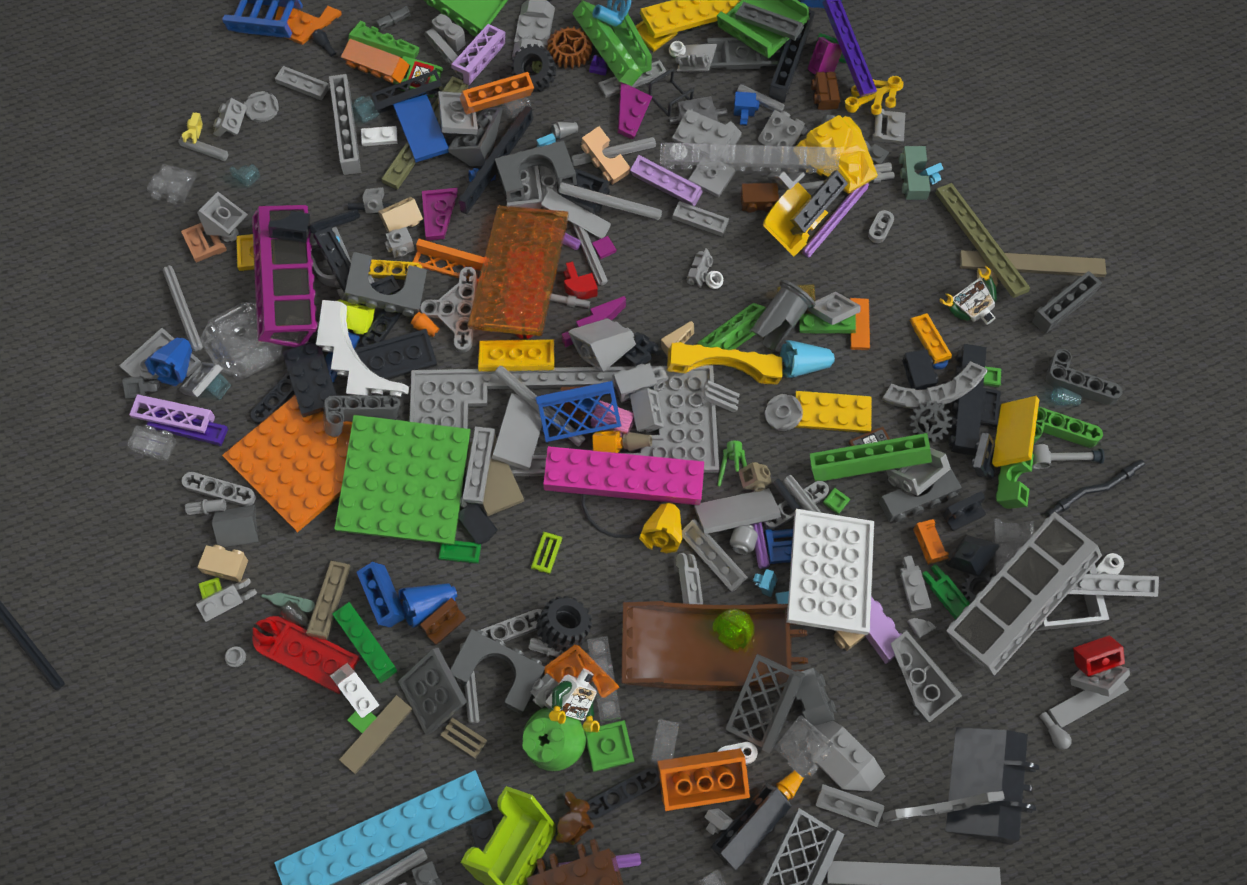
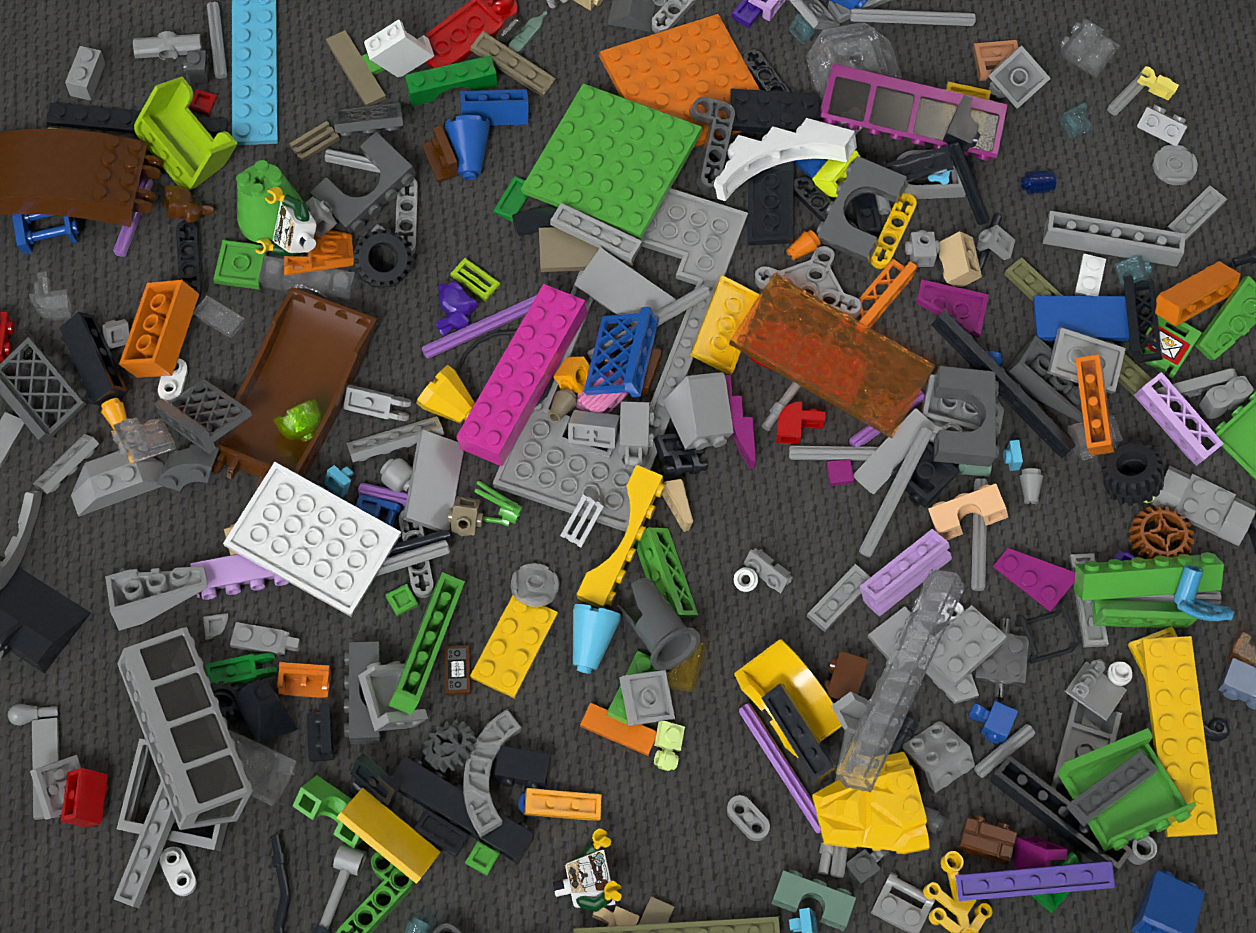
camera: 110 degrees right, 0 degrees up
(309, 185) = (1038, 182): none -> clear blue brick
(455, 856) = (202, 102): none -> red tile
(578, 555) = (456, 306): none -> dark purple animal
(586, 529) = (477, 329): none -> medium lavender axle
(852, 290) = (670, 739): none -> yellowish green plate

